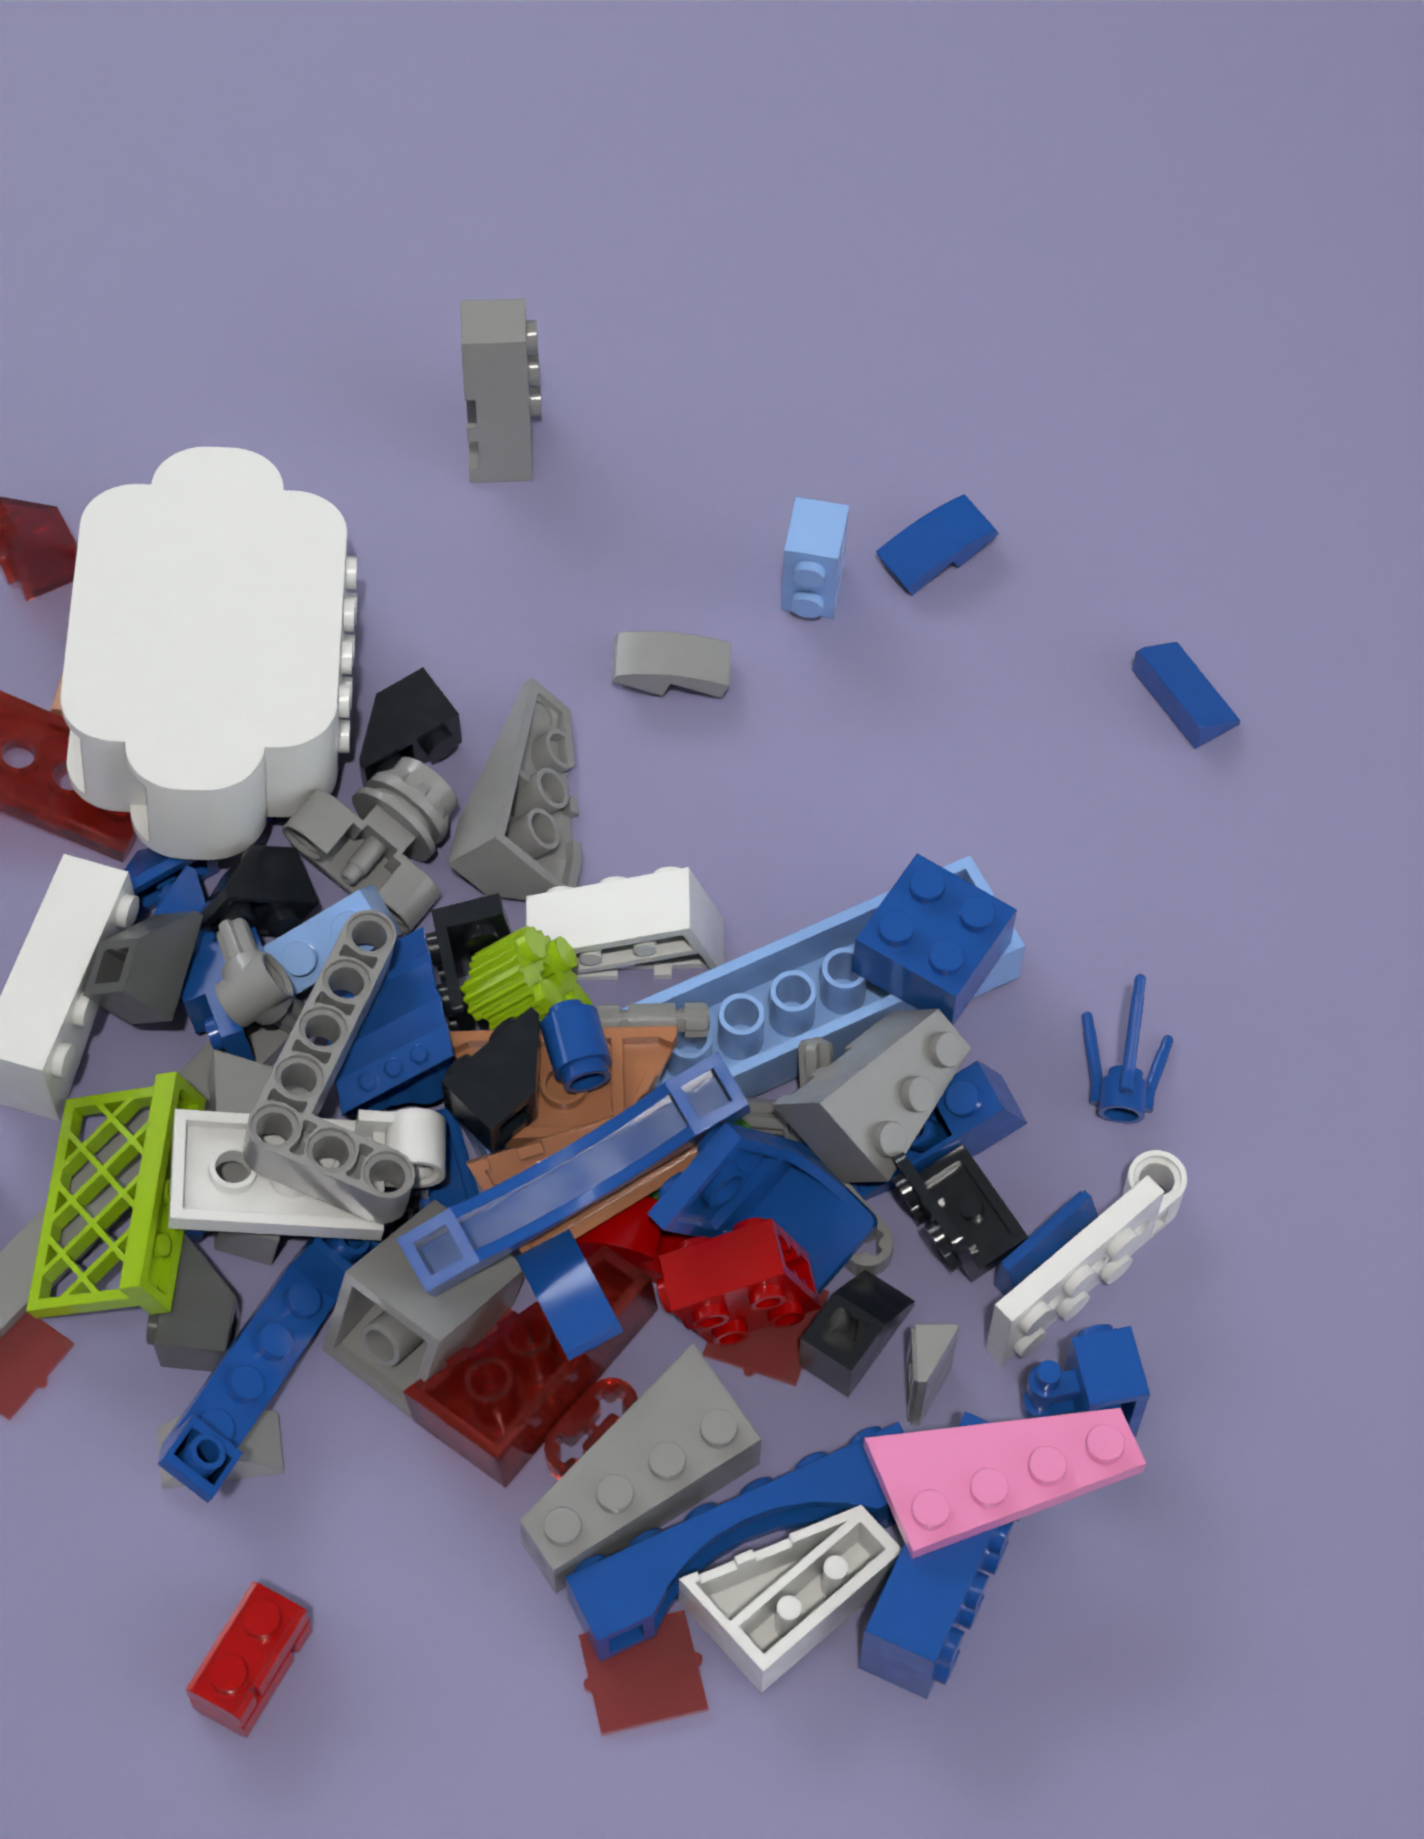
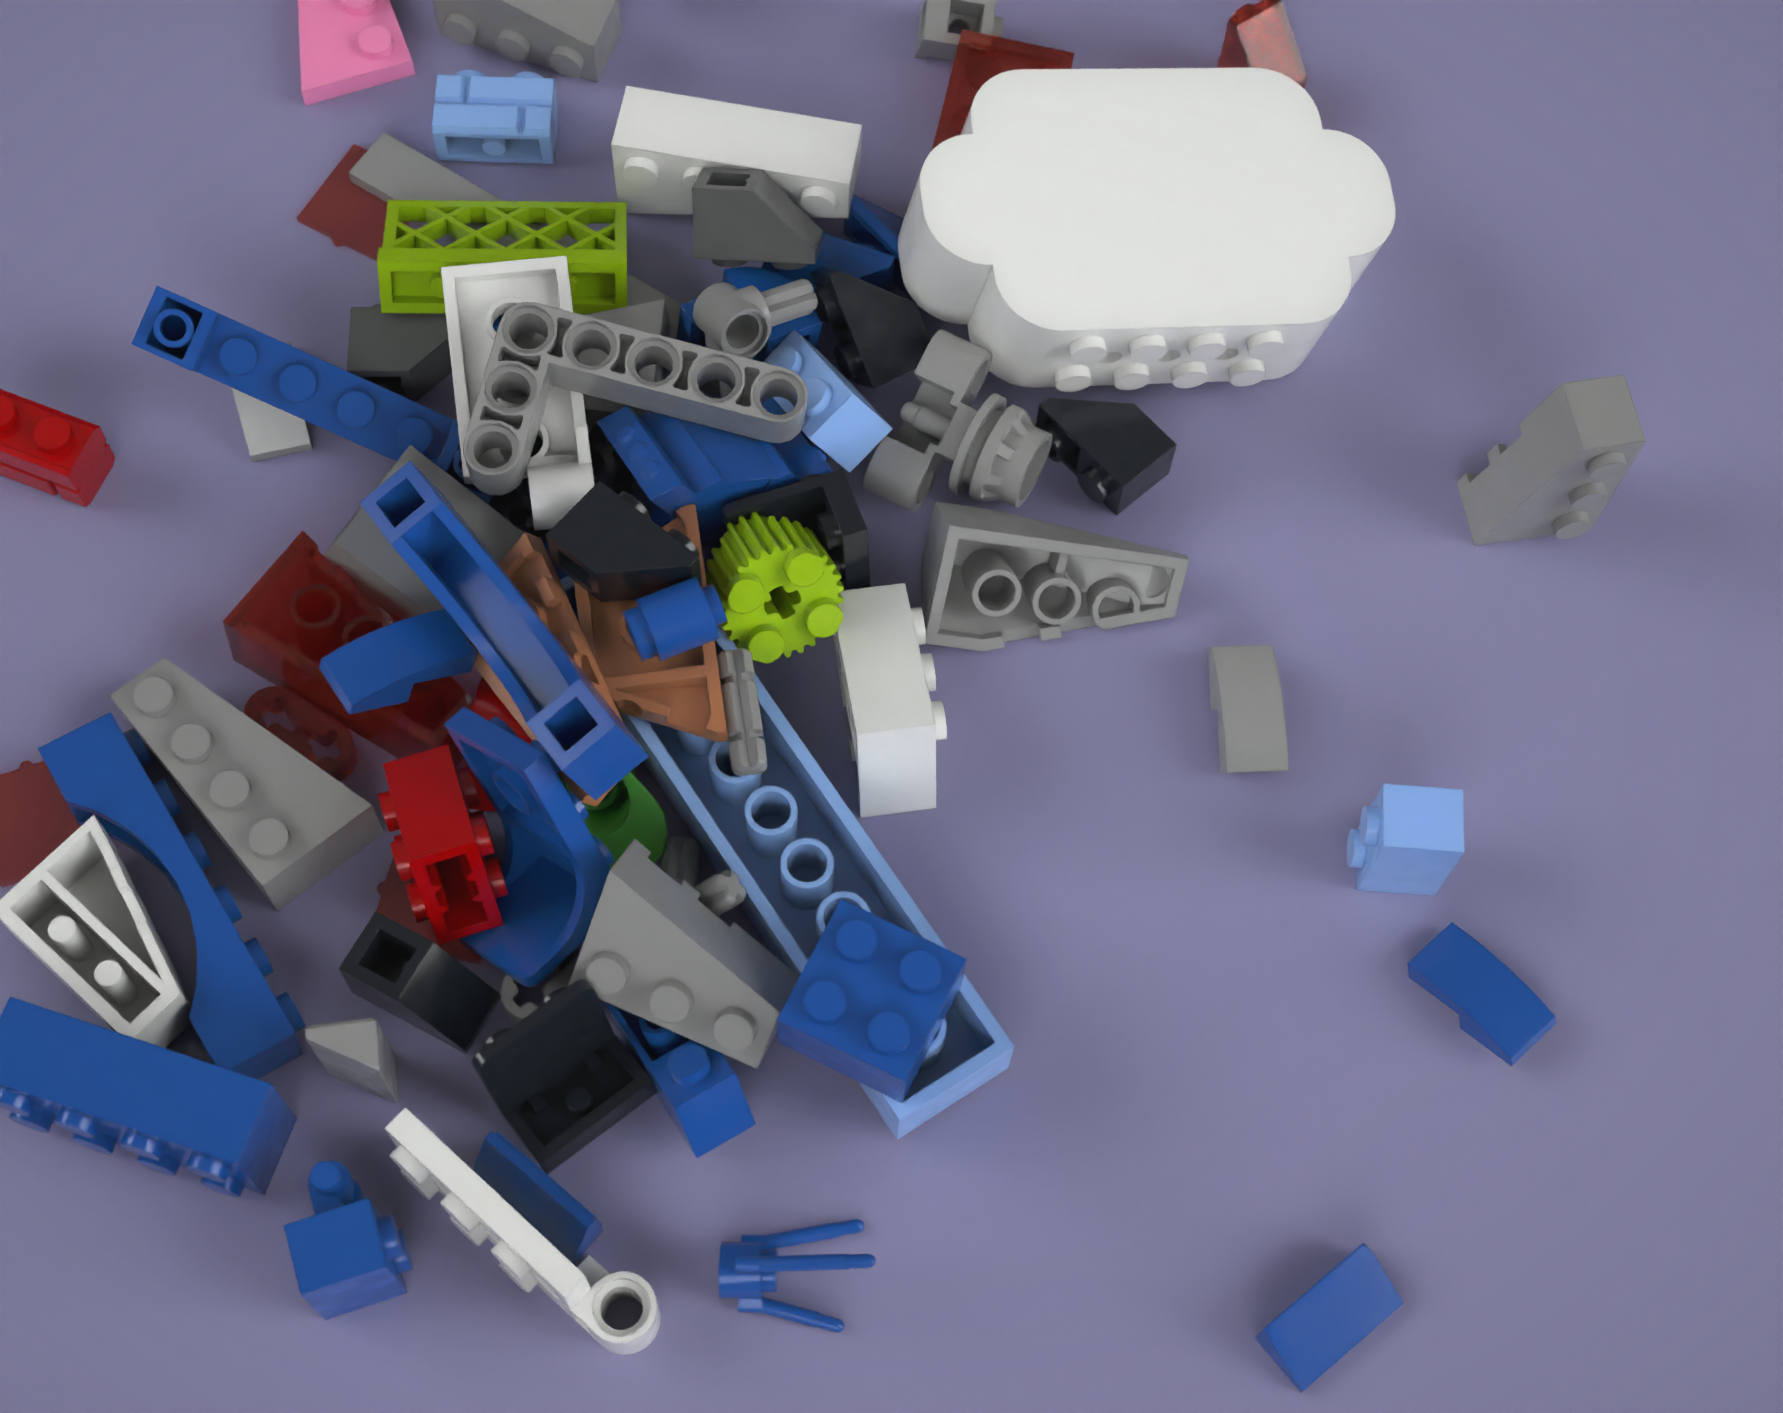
camera: 80 degrees right, 5 degrees up
(989, 1474) = (187, 1118): bright pink wing -> none

